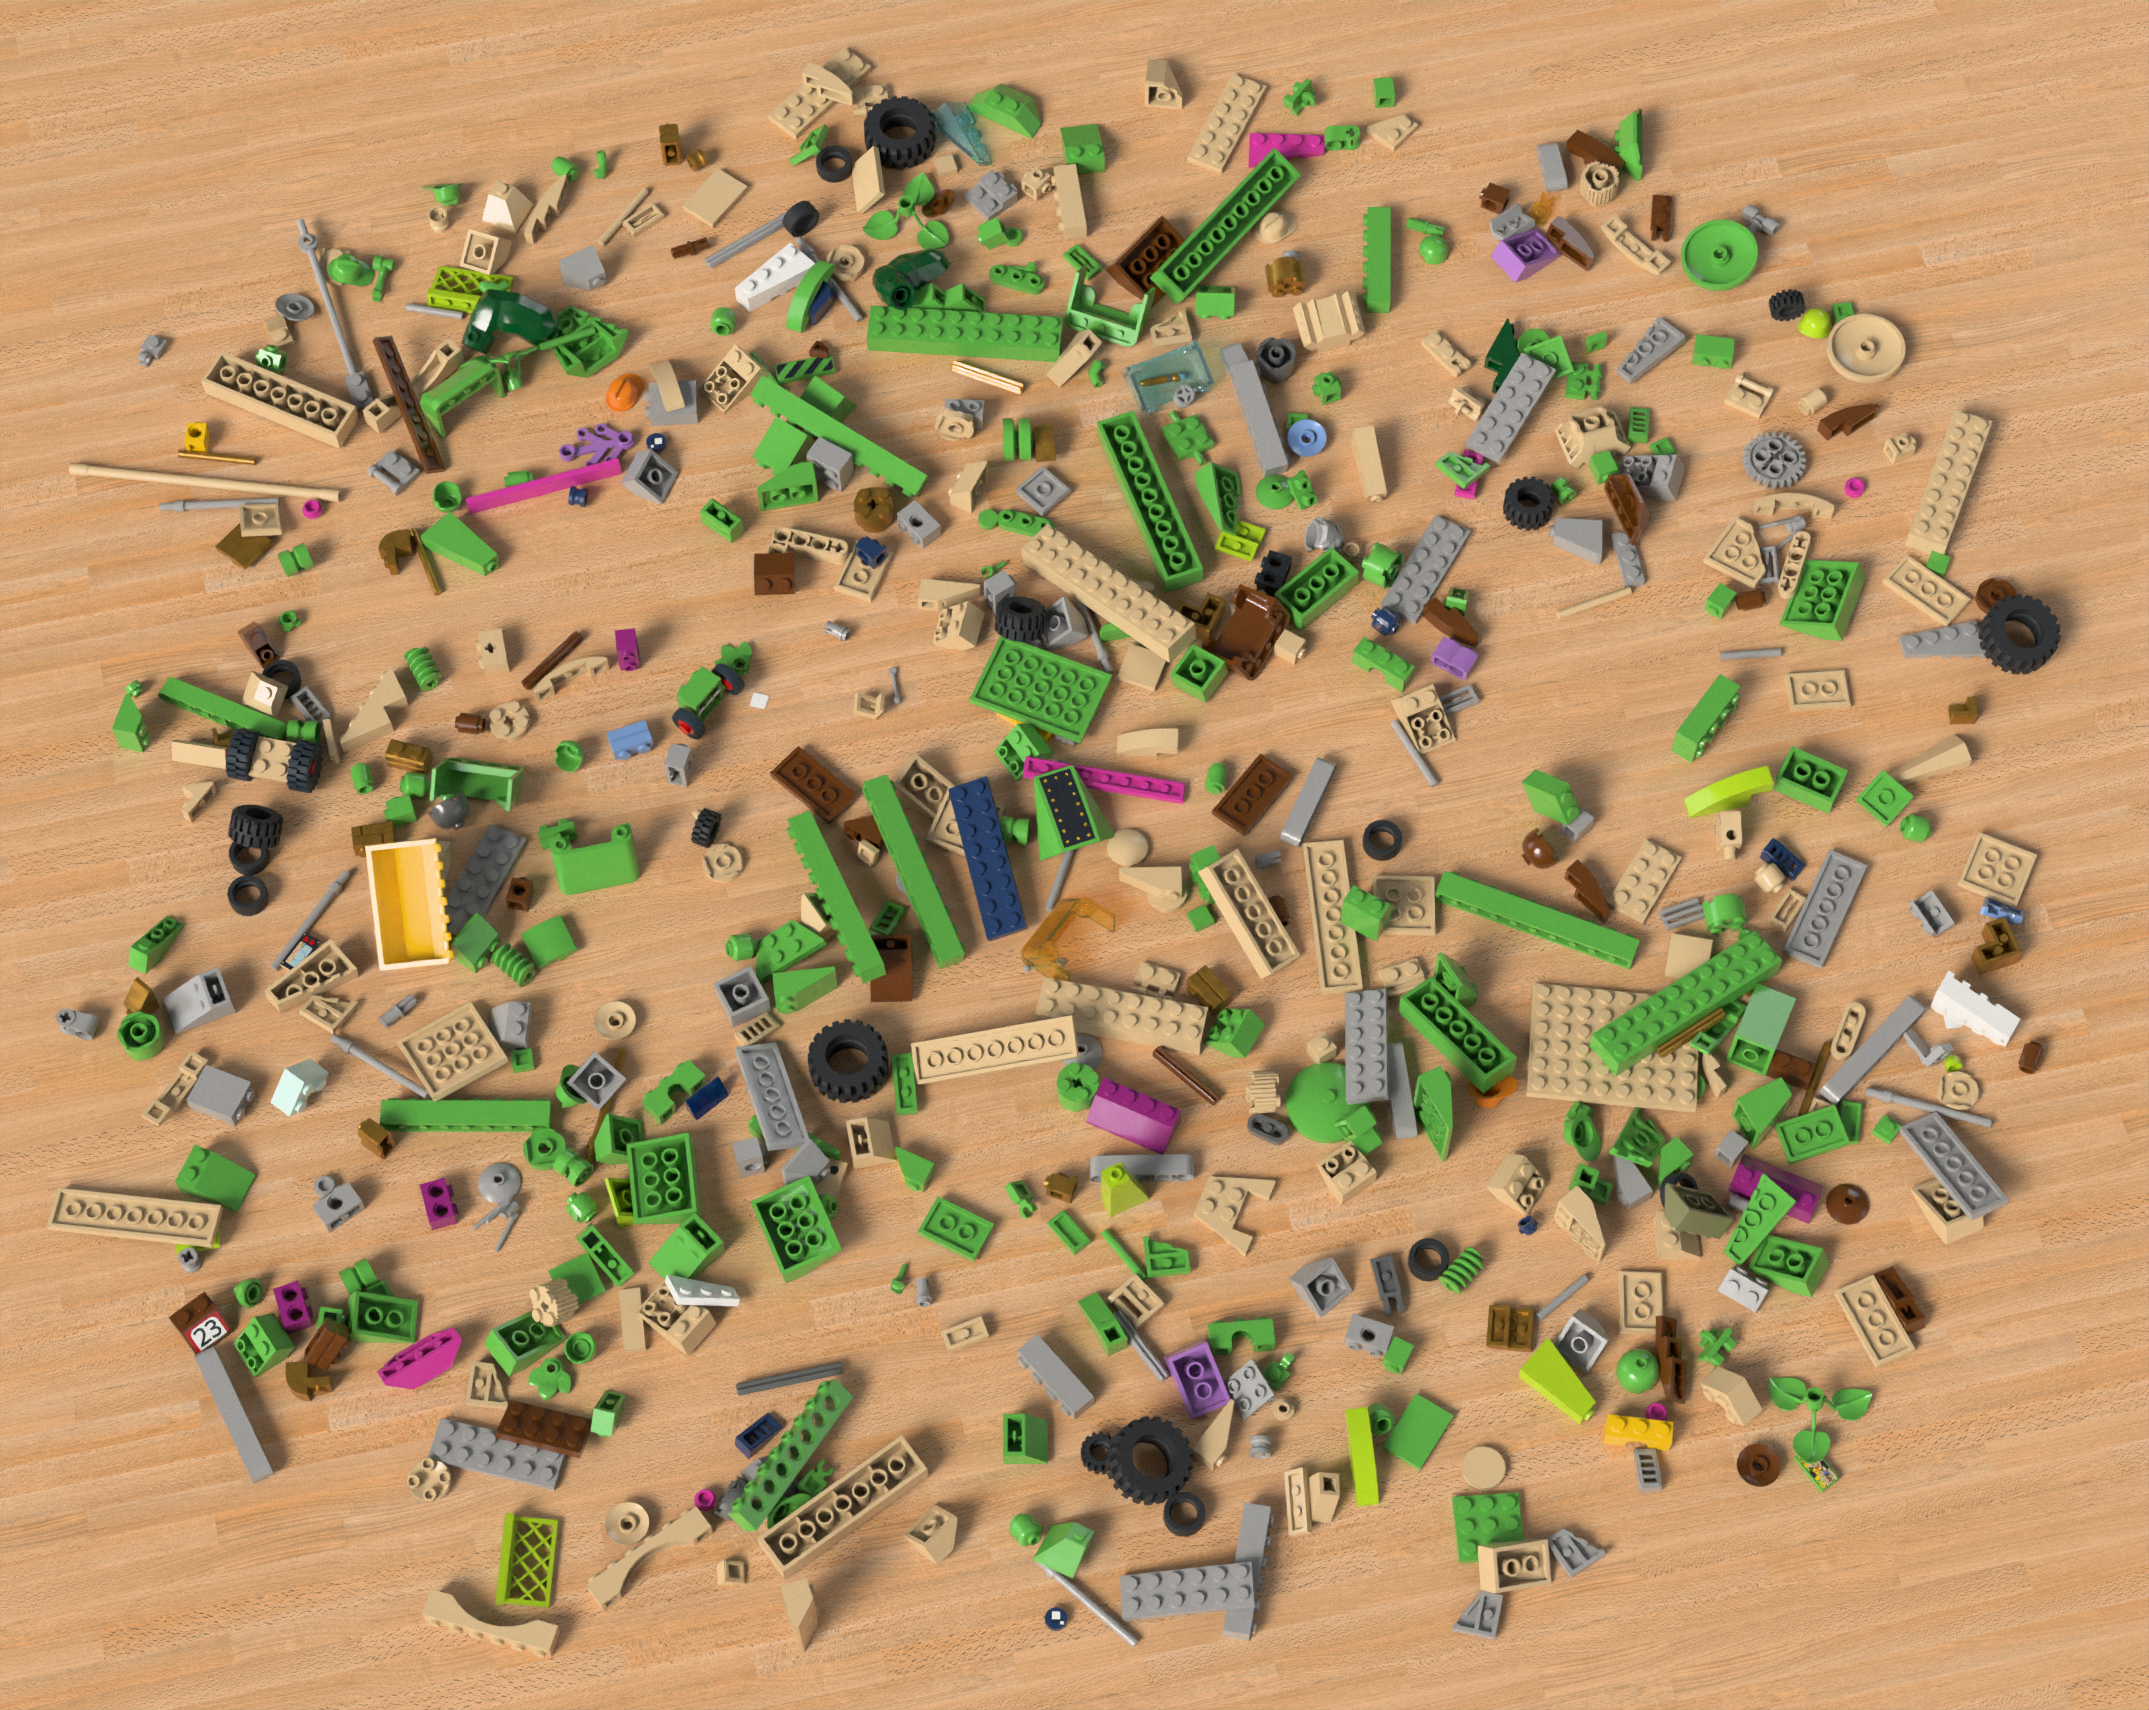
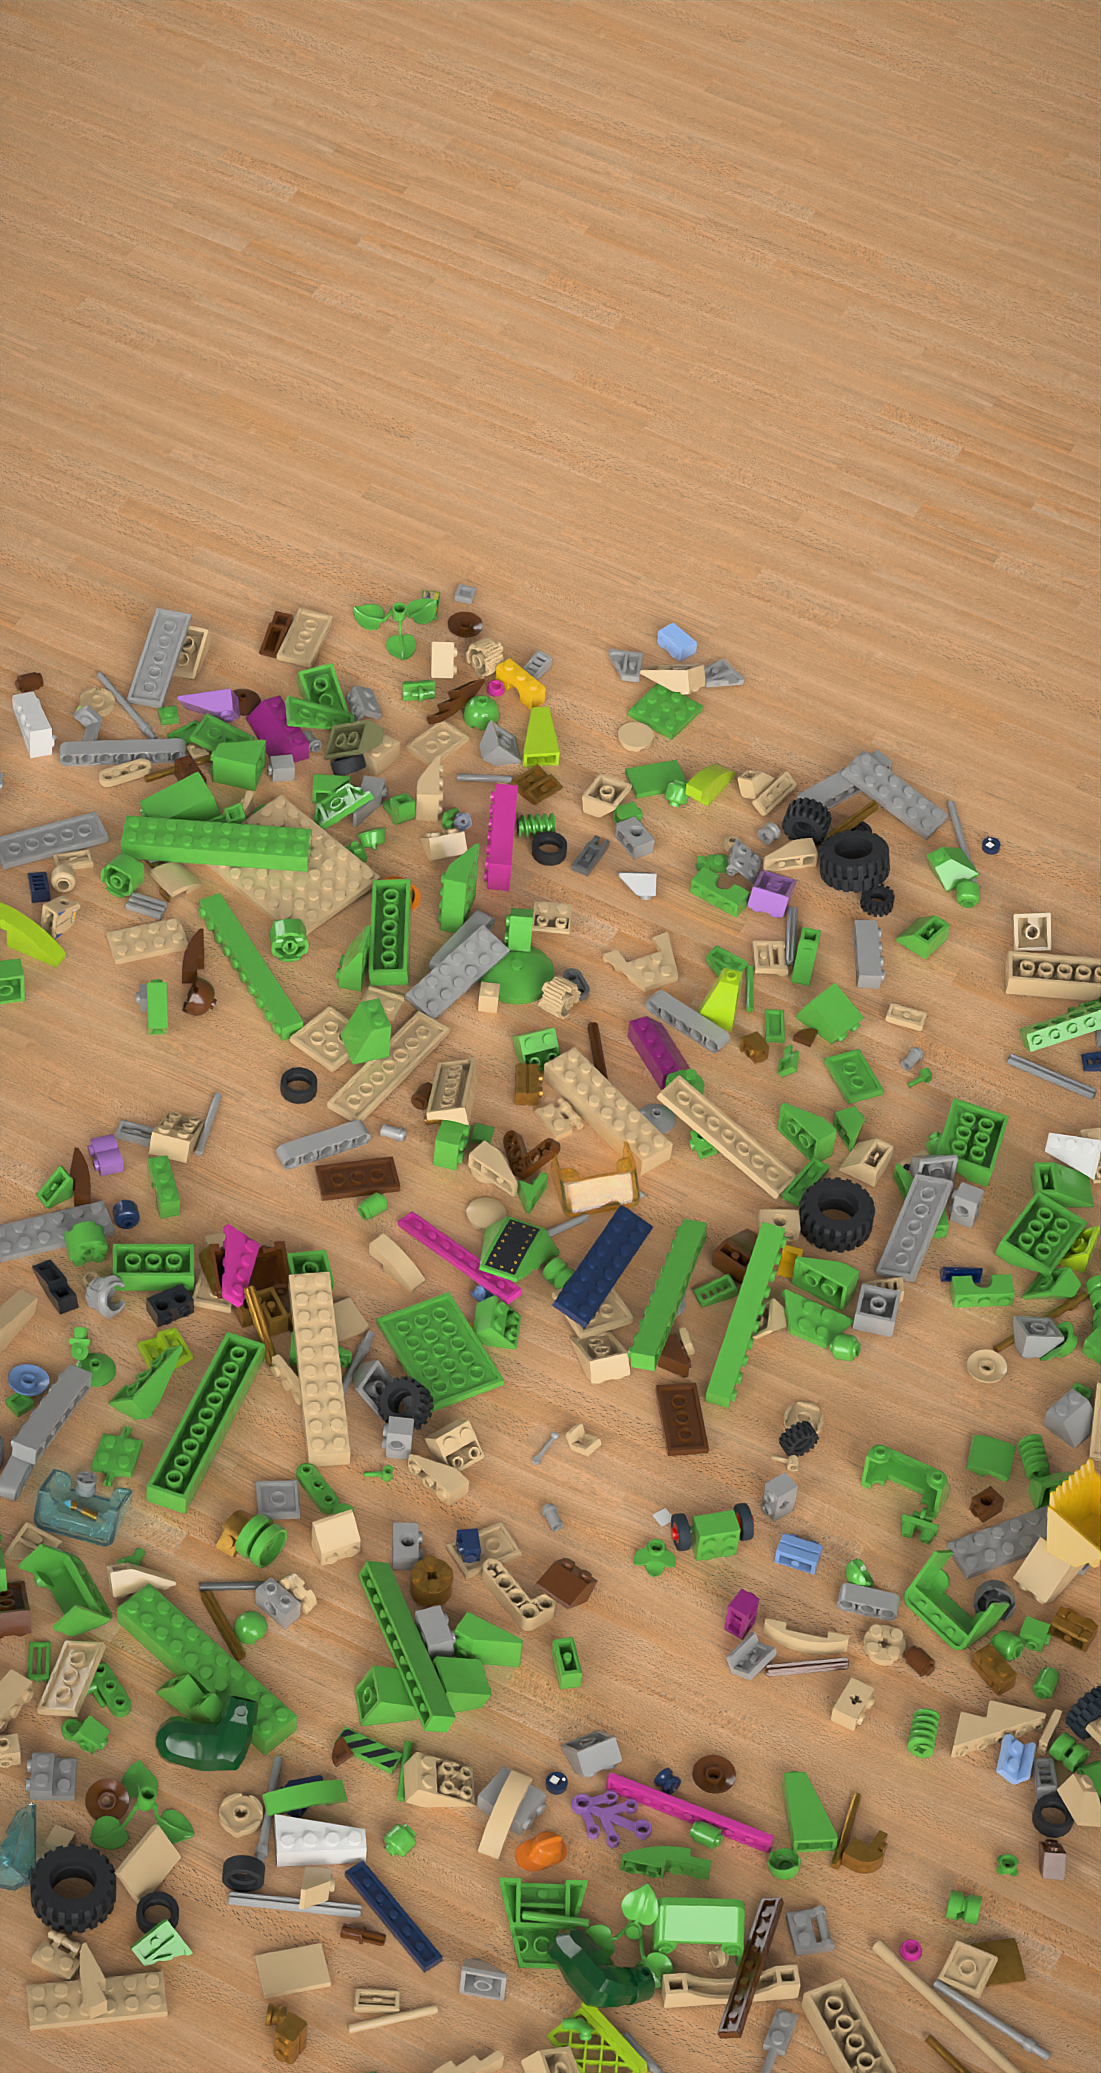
camera: 145 degrees left, 15 degrees down
(340, 698) = (1015, 1759): none -> light blue bracket
(537, 437) = (657, 1859): none -> bright green slope
(544, 742) = (868, 1601): none -> light grey beam
(549, 518) = (716, 1767): none -> reddish brown dish
(596, 631) = (750, 1657): none -> light grey bracket
(681, 274) = (393, 1916): none -> dark blue plate
(747, 246) = (316, 1886): none -> tan slope
(851, 995) = (787, 1261): none -> yellow panel
(894, 1009) = (783, 1218): none -> tan brick
(937, 1122) = (807, 1132): none -> bright green slope
(967, 388) = (250, 1627): none -> bright green hair
(1005, 414) = (226, 1586): none -> dark grey bar
(1028, 1273) = (831, 1015): none -> bright green slope
(1032, 1242) = (805, 1036): none -> reddish brown tile
(1046, 261) = (71, 1678): none -> tan tile
(1109, 888) = (531, 1193): none -> bright green slope
(1136, 907) = (546, 1149): none -> reddish brown beam
(1187, 596) = (259, 1322): none -> pearl gold axle
(1194, 1515) = (855, 819): none -> pearl gold axle
(1232, 1474) = (806, 820): none -> black tyre
(1251, 622) = (238, 1264): none -> dark pink wing
(1371, 525) = (55, 1286): none -> black slope
(1433, 1351) = (604, 795): none -> tan slope
(1473, 1223) = (501, 837): none -> dark pink brick
(1531, 963) = (288, 939): none -> bright green brick
(1545, 1219) = (447, 818): none -> bright green arm
(1556, 1622) = (676, 642): none -> light blue brick
(1695, 1429) = (484, 656): none -> tan brick
(1799, 1509) = (465, 594): none -> light grey plate
(1854, 1153) = (220, 704): none -> medium lavender slope

